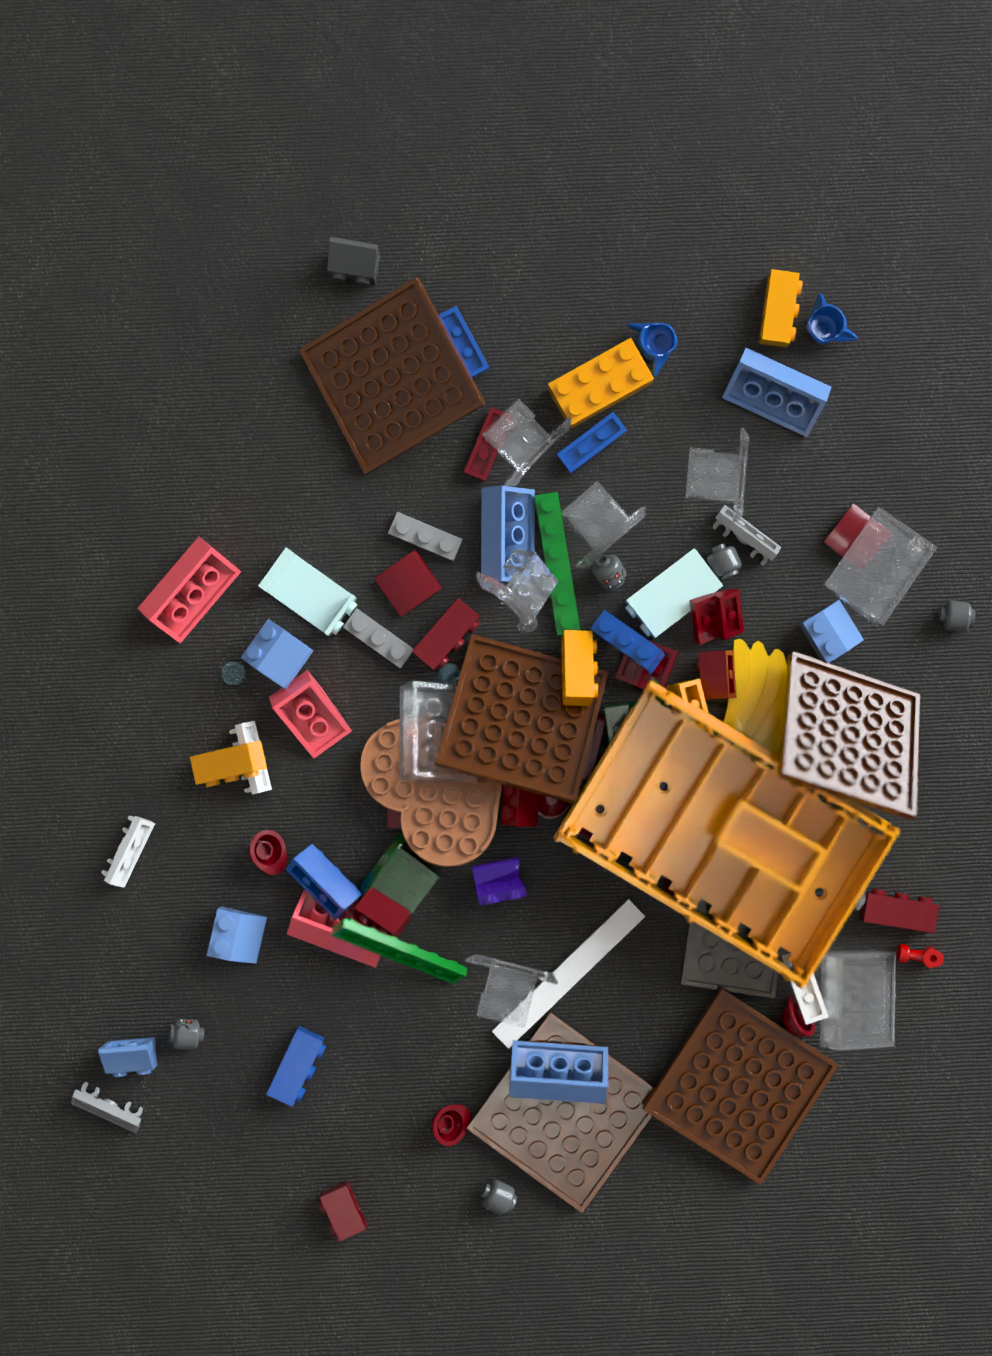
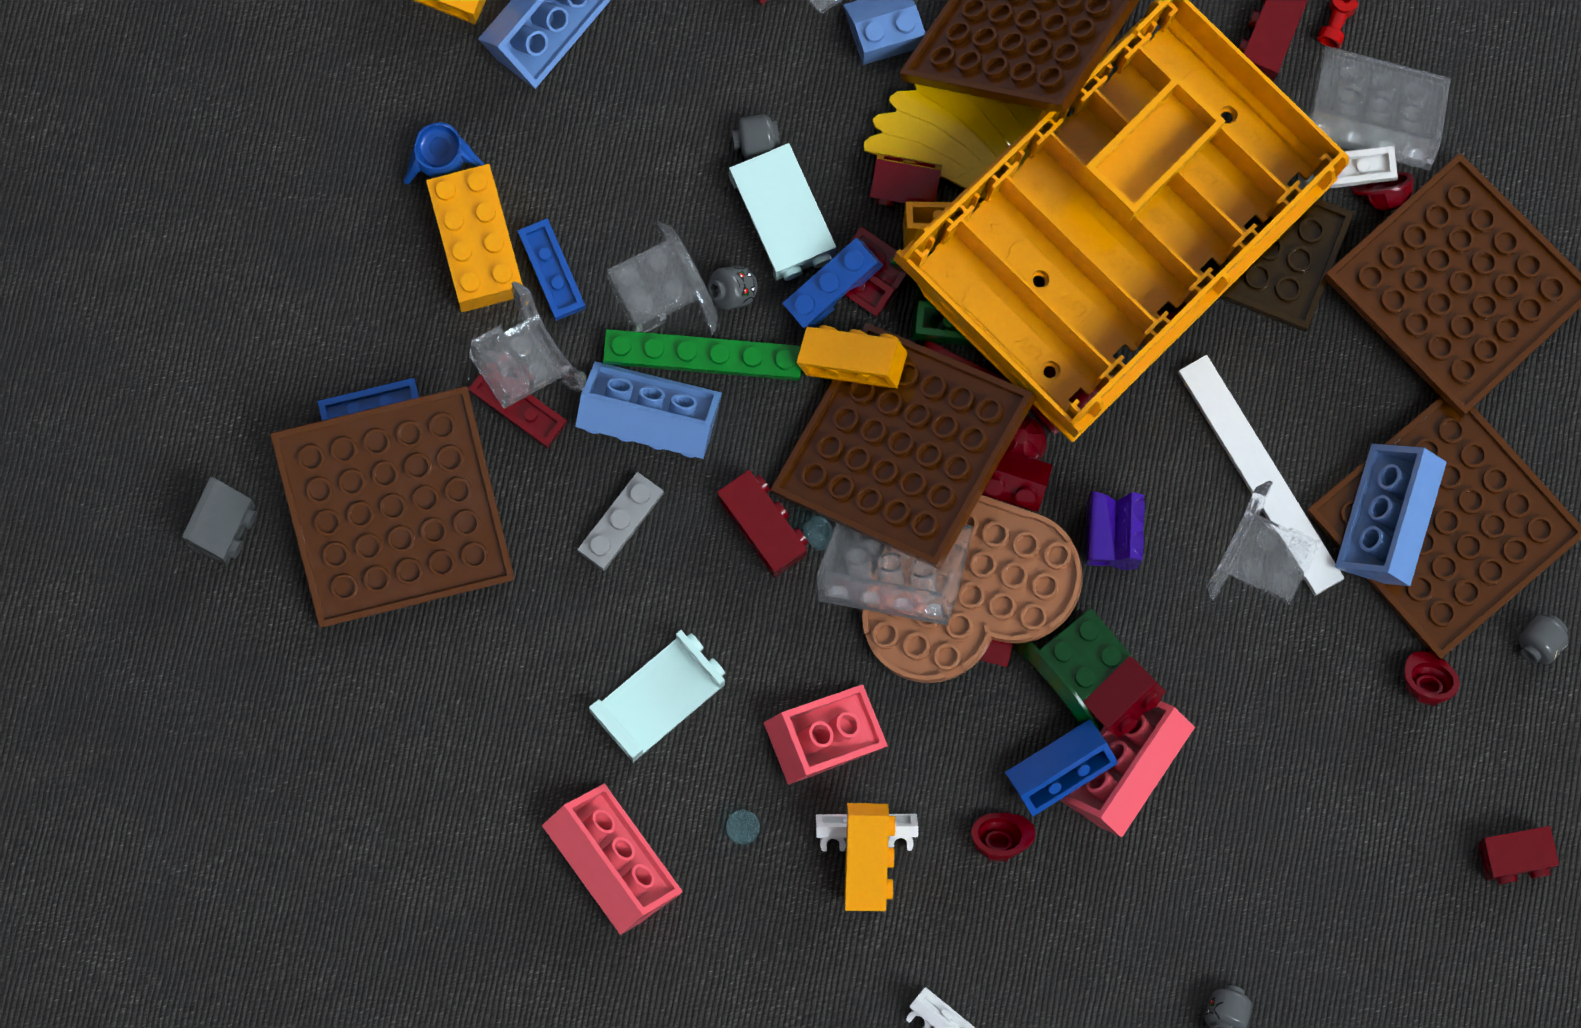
camera: 75 degrees left, 10 degrees down
(236, 935) = (1107, 909): medium blue slope -> none
(277, 654) = (732, 755): medium blue slope -> none
(296, 1066) = (1306, 869): blue brick -> none
(378, 638) = (744, 617): light grey plate -> none
(398, 951) = (1180, 683): green plate -> none
(408, 583) = (679, 558): dark red slope -> none
(527, 589) = (730, 391): clear piece -> none
(716, 616) = (826, 162): dark red slope -> none
(719, 475) = (640, 114): clear piece -> none
(747, 535) = (727, 99): light grey plate -> none

